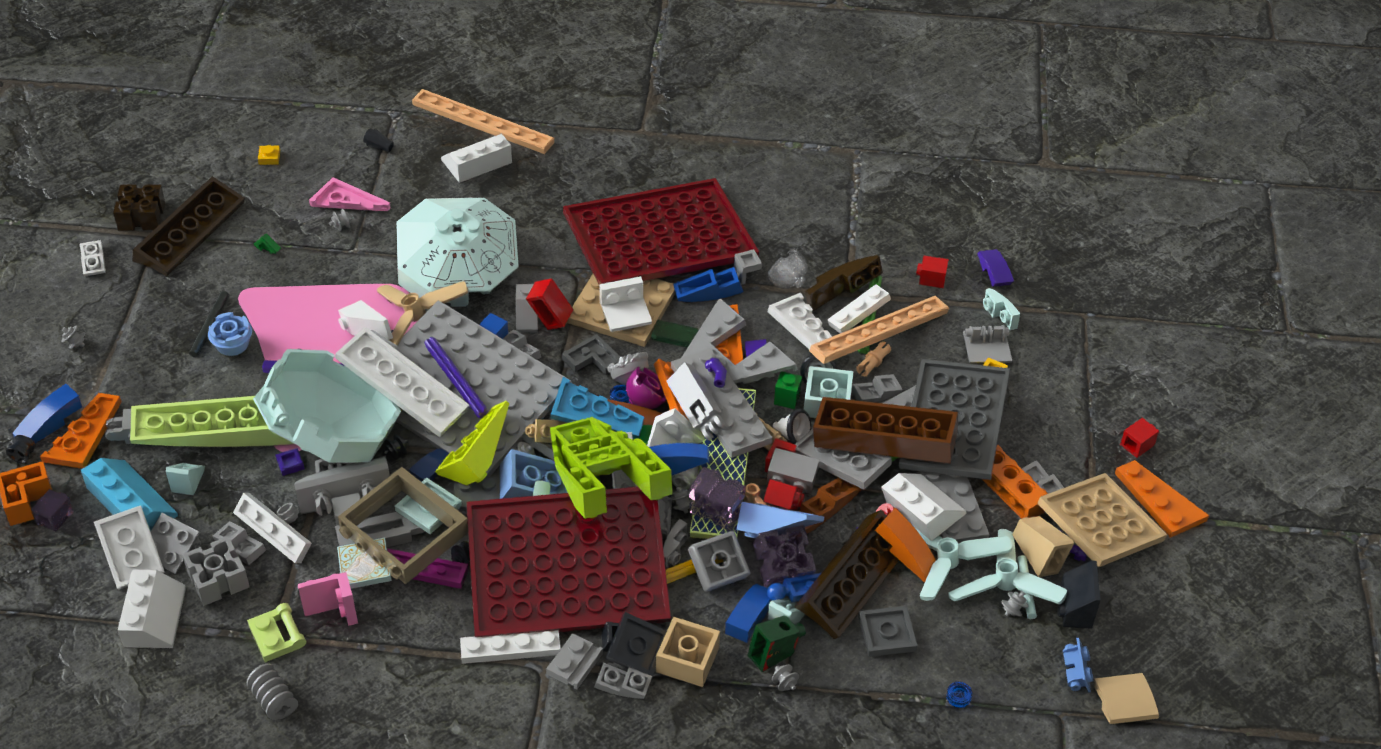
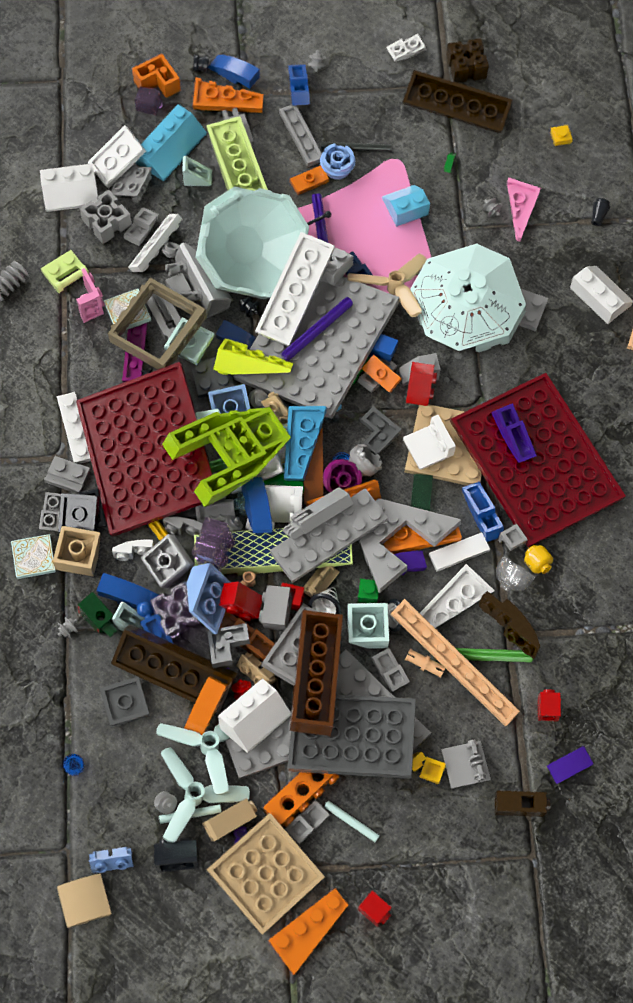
camera: 80 degrees right, 20 degrees up
(100, 357) = (298, 84): none -> blue slope
(172, 367) = (301, 135): none -> light grey plate
(238, 371) = (309, 180): none -> orange plate
(307, 287) = (407, 204): none -> medium azure slope
(361, 315) = (375, 248): white slope -> none
(527, 335) = (381, 373): none -> orange plate
(631, 235) = (514, 433): none -> dark purple slope
(680, 709) = (33, 556): none -> tile
(695, 598) = (126, 550): none -> white slope
(720, 371) = (354, 525): dark purple arm -> none
(750, 311) = (459, 552): none -> white tile
(772, 250) = (538, 559): none -> yellow head
(836, 517) = (221, 643): none -> plate
(859, 309) = (481, 643): white plate -> none
(865, 504) = (249, 665): none -> tan hinge
(1000, 306) = (516, 769): light aqua slope -> none
(1033, 309) = (521, 803): none -> dark brown brick
(1044, 445) = (351, 821): none -> light aqua bar

